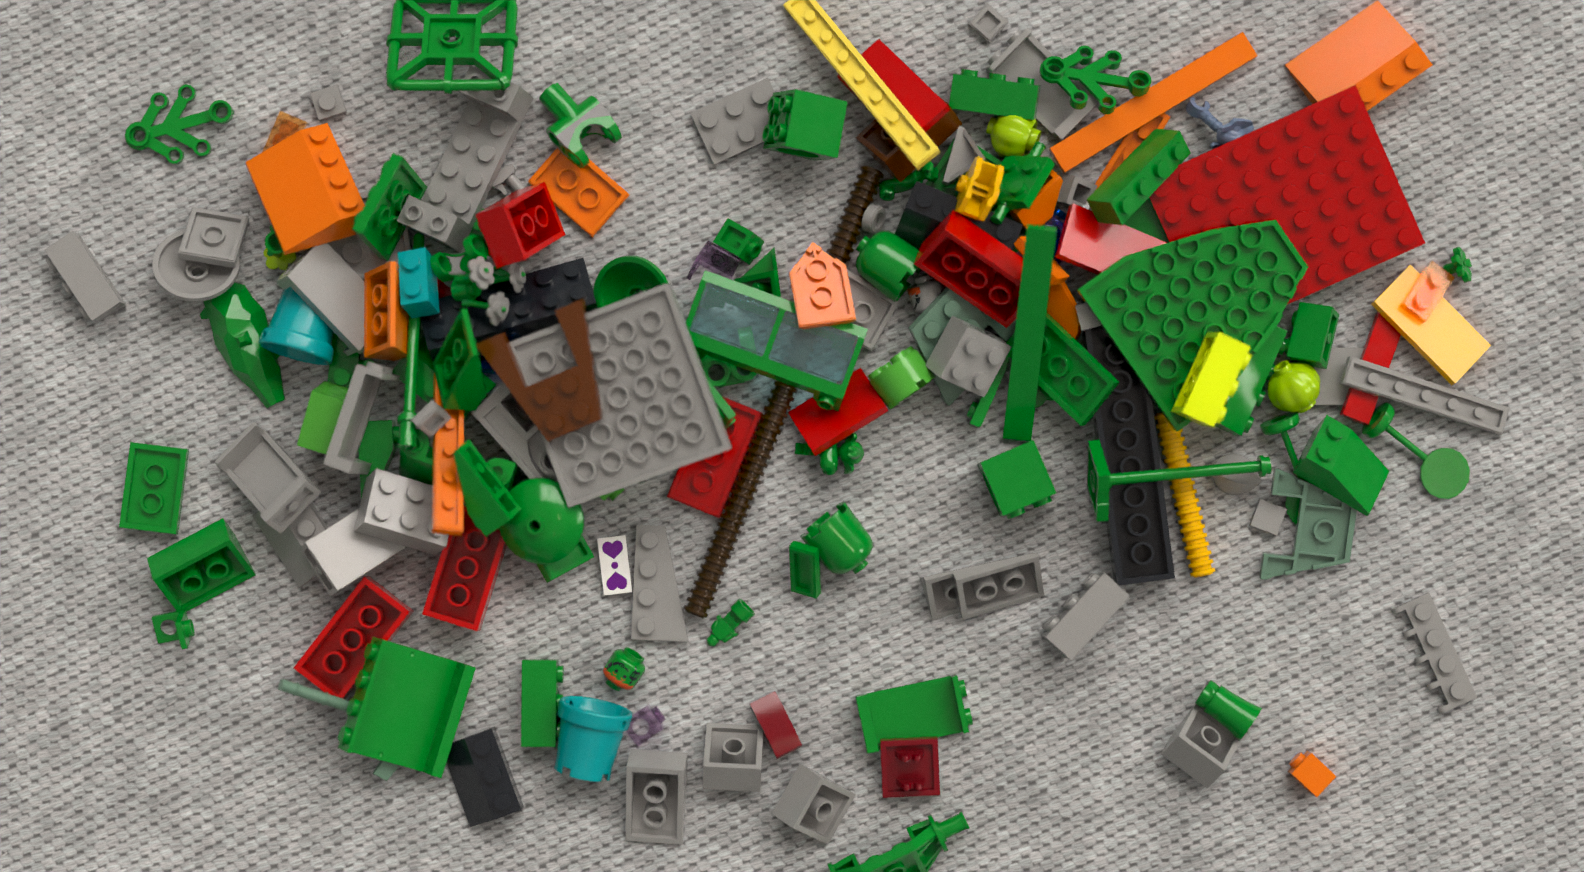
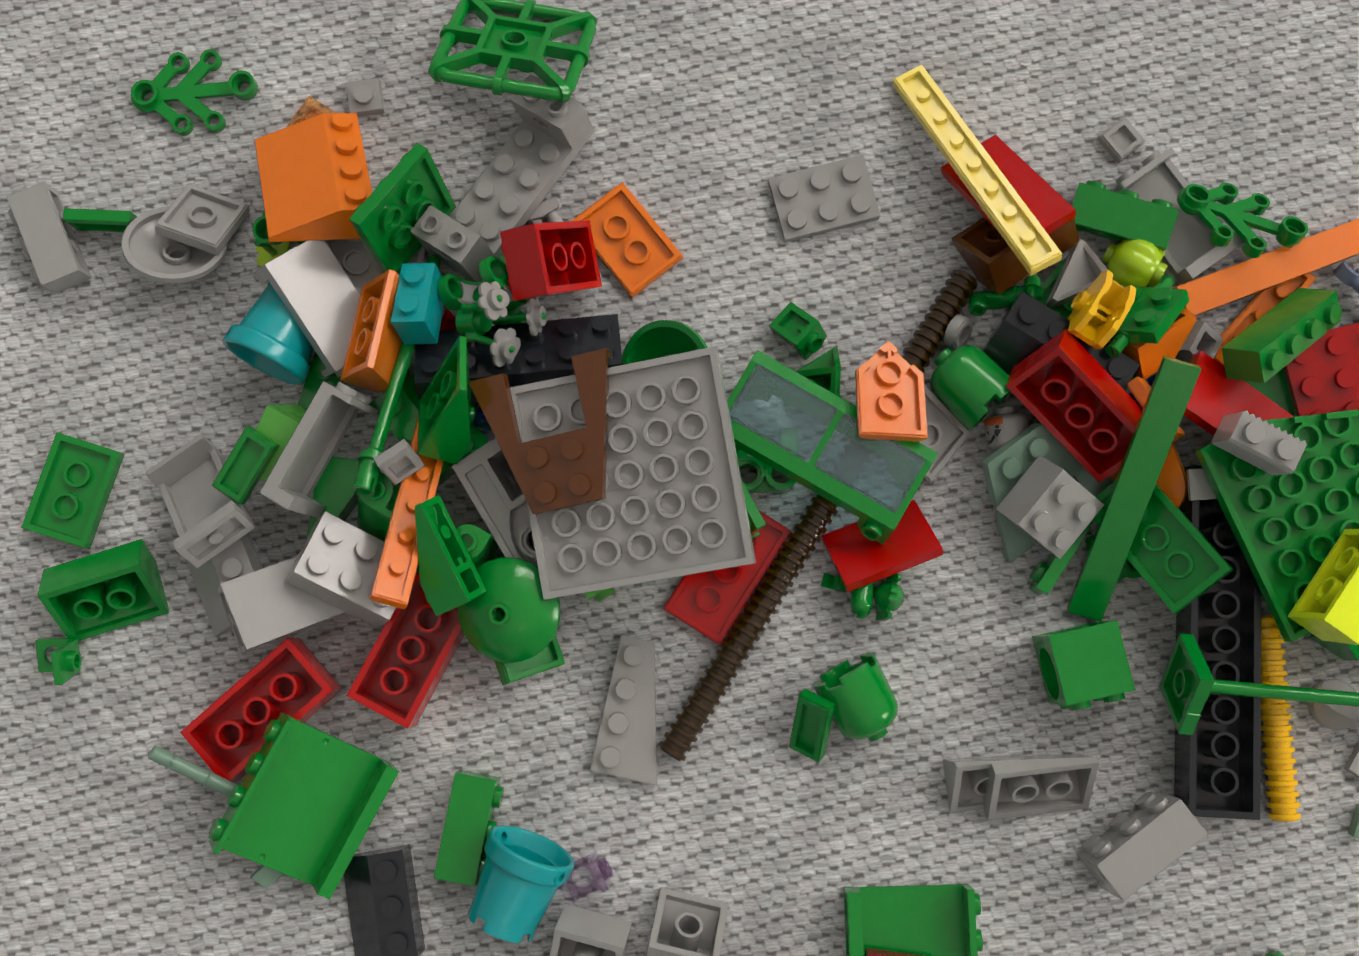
camera: 10 degrees right, 5 degrees down
(126, 253) = (98, 219): none -> green tile
(236, 329) = (206, 314): green piece -> none
(303, 442) = (245, 465): none -> green tile
(576, 122) = (638, 165): green connector -> none
(614, 565) = (587, 678): white tile -> none
(624, 669) = (574, 805): green head -> none
(716, 260) = (769, 343): clear purple bracket -> none
(724, 628) = (702, 776): green piece -> none
(775, 725) = (743, 907): dark red slope -> none
(804, 124) = (900, 208): green brick -> none
(901, 378) = (965, 519): bright green brick -> none
(1120, 277) = (1259, 443): none -> light grey brick

